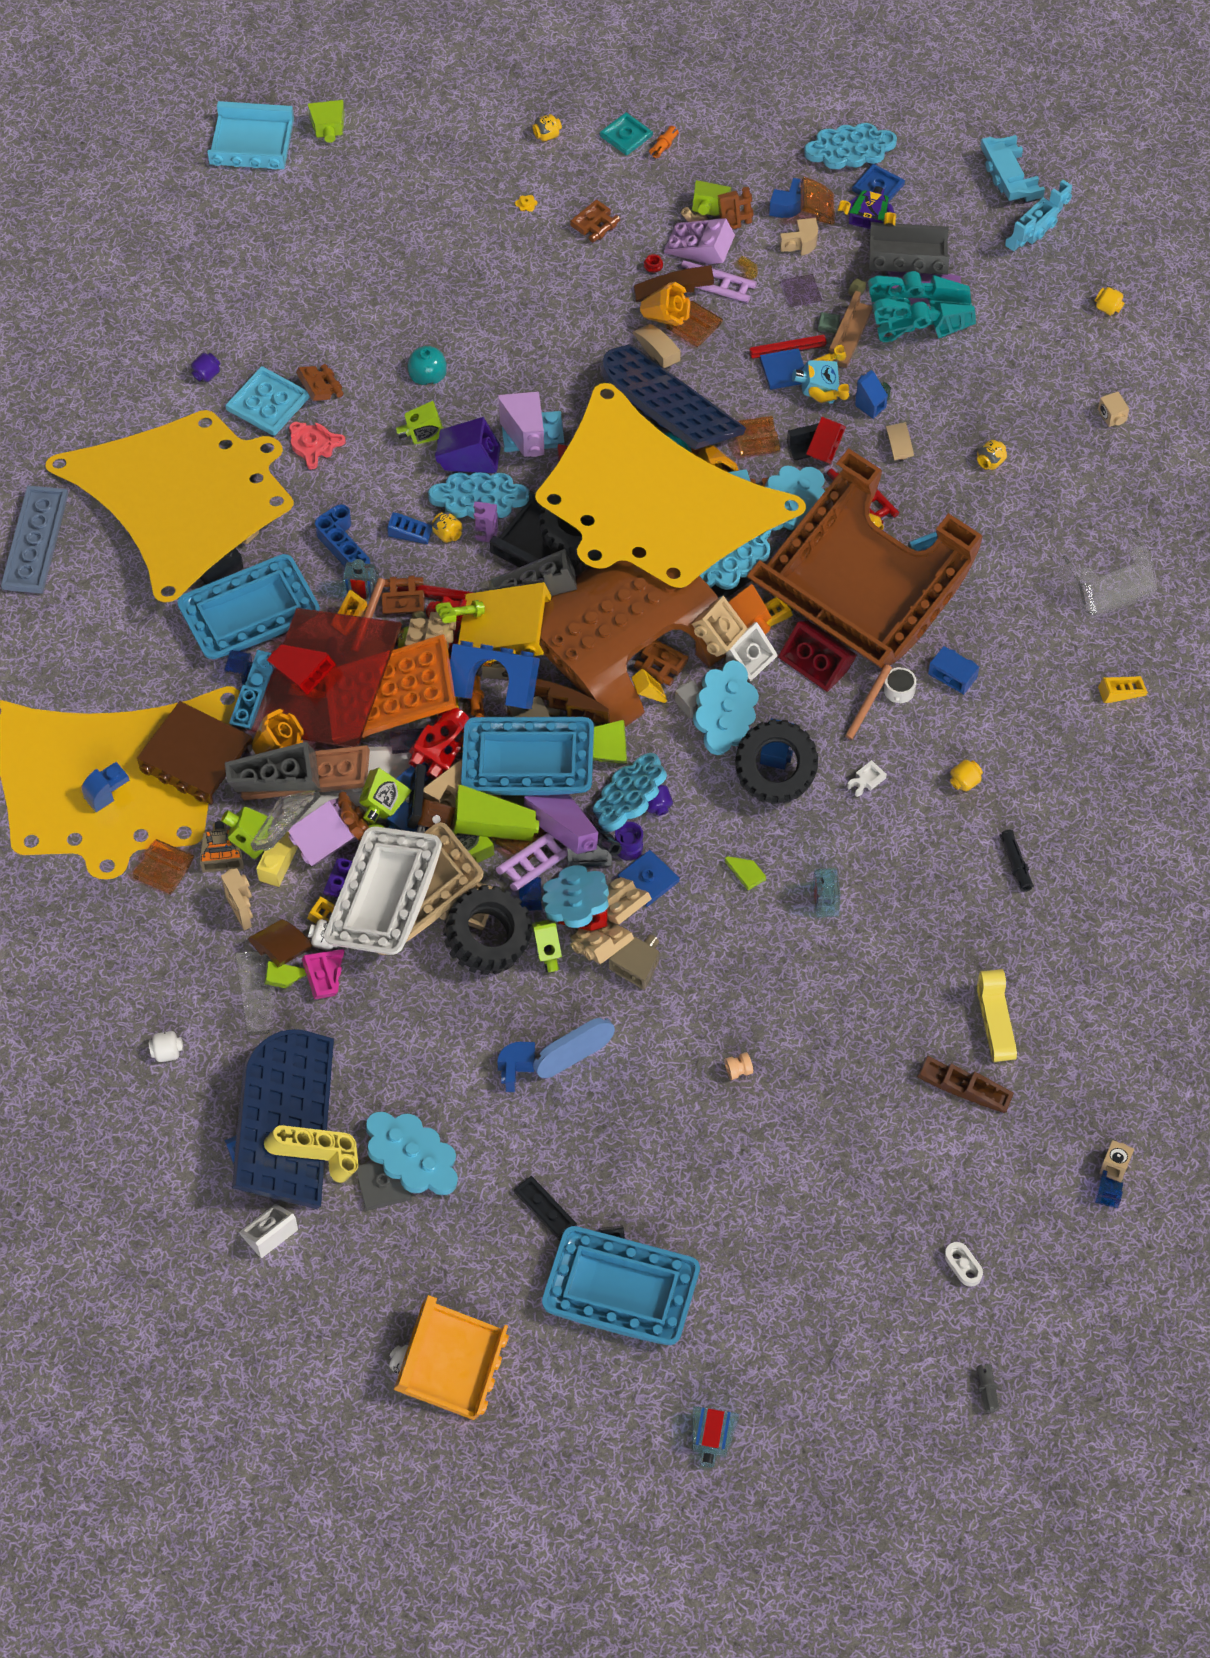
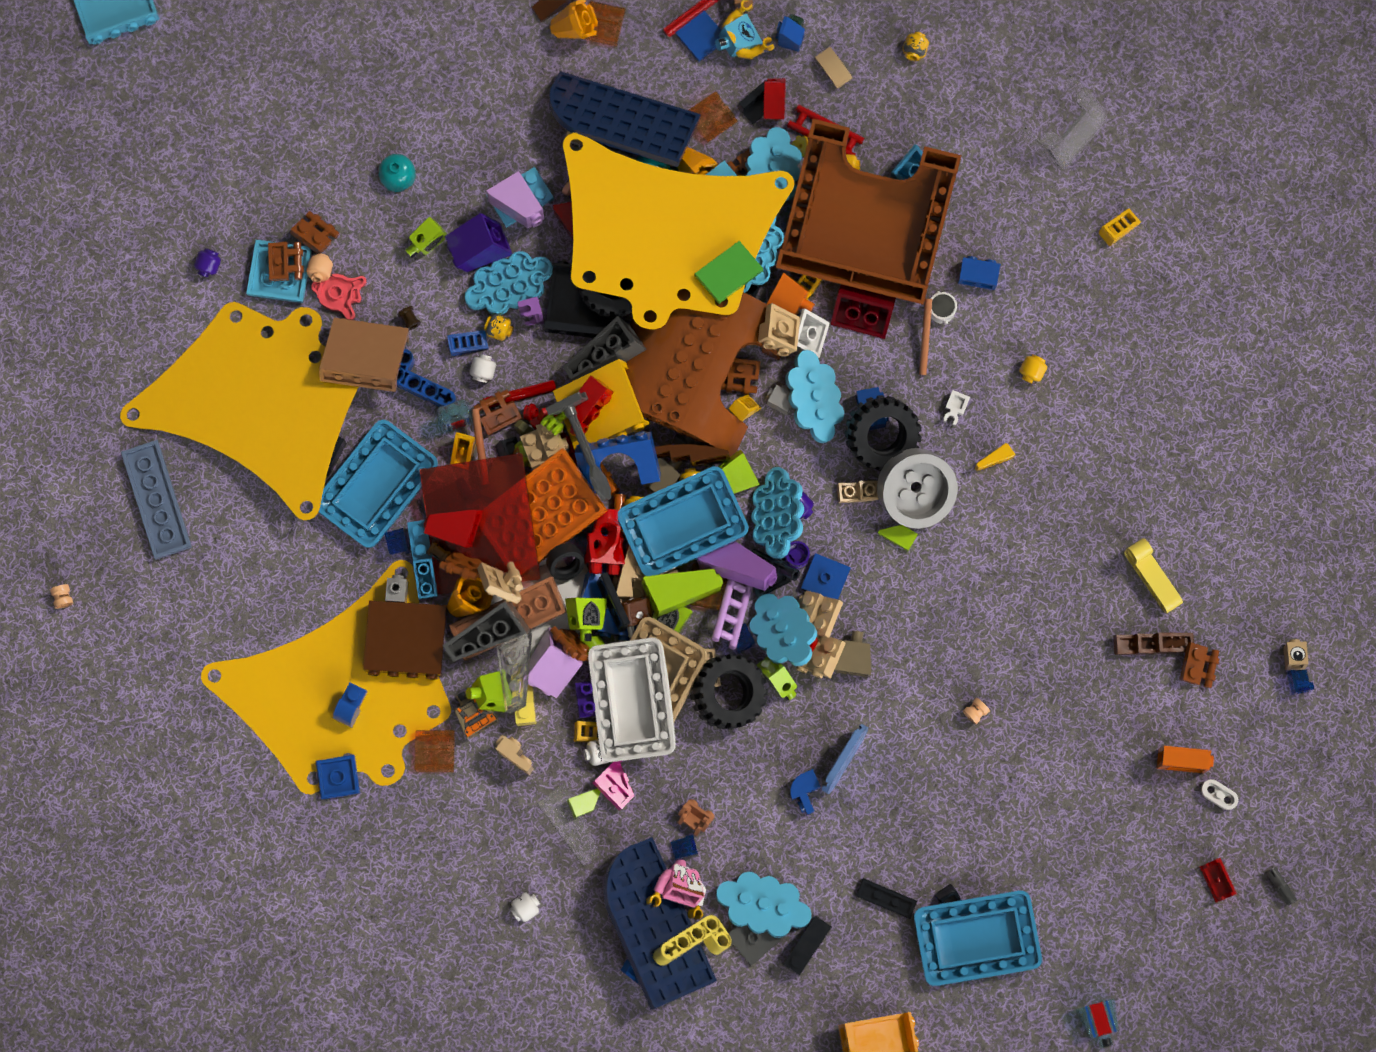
camera: 25 degrees left, 20 degrees up
(54, 848) = (338, 777): none -> blue tile
(214, 704) = (396, 589): none -> light grey brick
(269, 1230) = (686, 1018): white slope -> none
(271, 388) = (279, 261): none -> dark orange plate
(272, 687) = (438, 552): none -> dark brown bush
(280, 942) = (567, 775): reddish brown slope -> none
(288, 704) = (461, 565): none -> dark orange plate
(301, 491) = (363, 354): none -> medium nougat panel
(306, 410) = (319, 268): none -> light nougat head
(317, 732) = (501, 583): none -> tan plate
(335, 1092) = (681, 886): none -> torso
(361, 1065) = (684, 847): none -> clear blue panel
(366, 483) = (409, 318): none -> dark brown bush
(388, 1038) = (695, 817): none -> nougat piece
(390, 726) = (560, 552): none -> black tyre
(411, 554) = (482, 368): none -> white head
(432, 1215) = (807, 945): none -> black slope
(467, 598) = (567, 406): none -> dark grey piece
(491, 610) = (598, 396): none -> red slope
(658, 345) = (583, 61): tan slope -> none
(694, 551) = (728, 272): none -> bright green tile
(729, 815) = (857, 492): none -> tan slope
(808, 825) = (926, 504): none -> light grey brick
(826, 886) = (973, 528): clear light blue torso -> none
(885, 839) = (998, 456): none -> yellow slope
(918, 1349) = (1217, 880): none -> red hinge
(940, 1206) = (1184, 759): none -> orange window
(999, 1121) = (1194, 663): none -> dark orange plate
(1019, 867) = (1111, 433): black pin -> none

